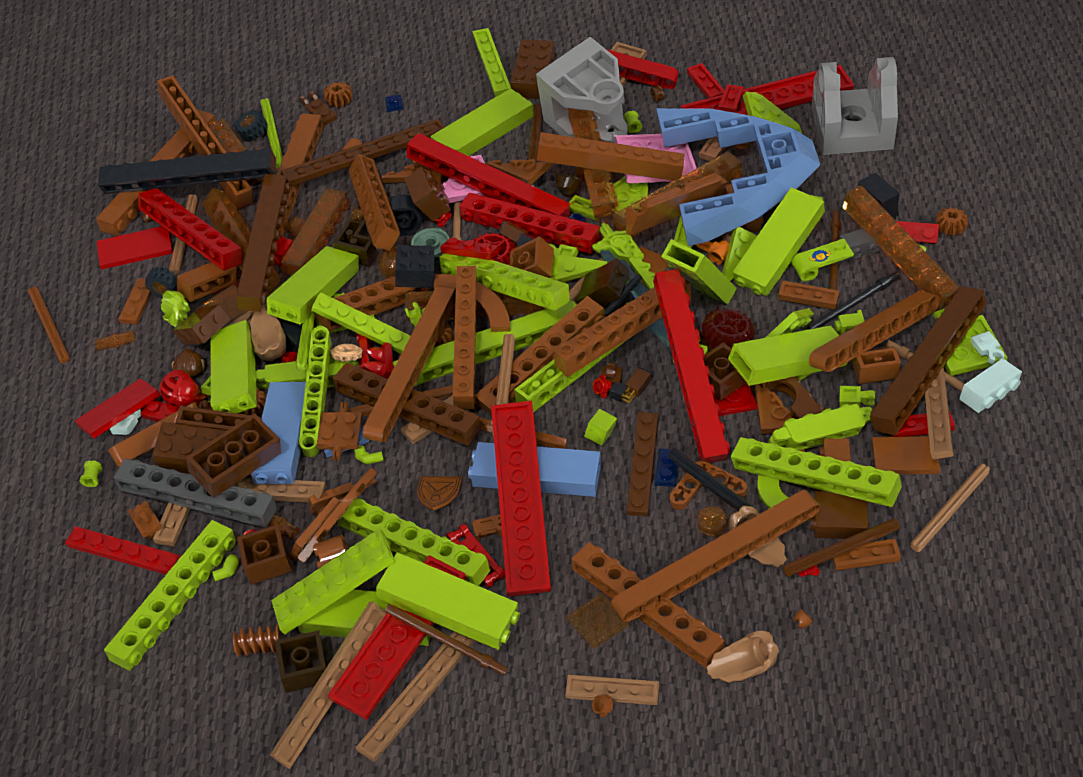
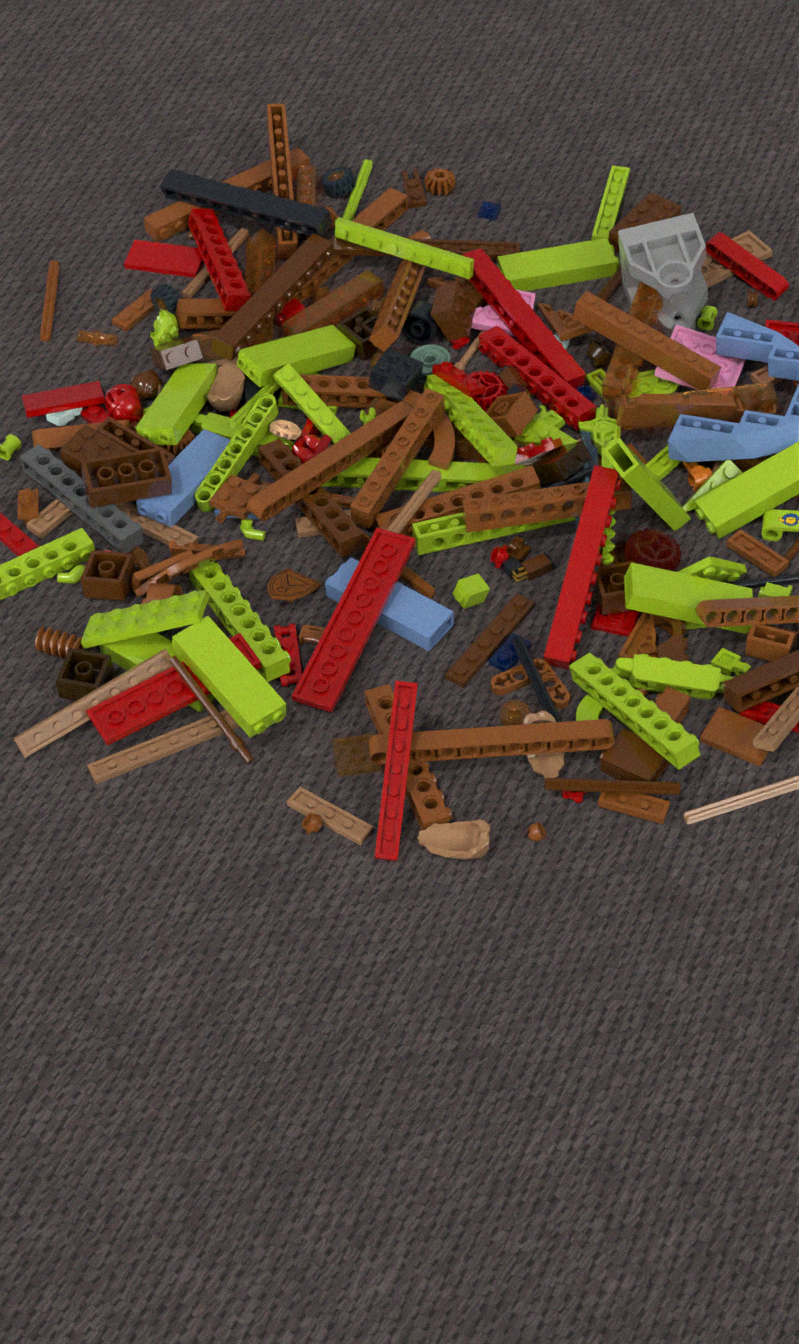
camera: 25 degrees right, 0 degrees up
(353, 157) = (404, 248): none -> lime plate
(580, 276) = (532, 450): none -> red plate
(657, 621) = (396, 771): none -> red plate

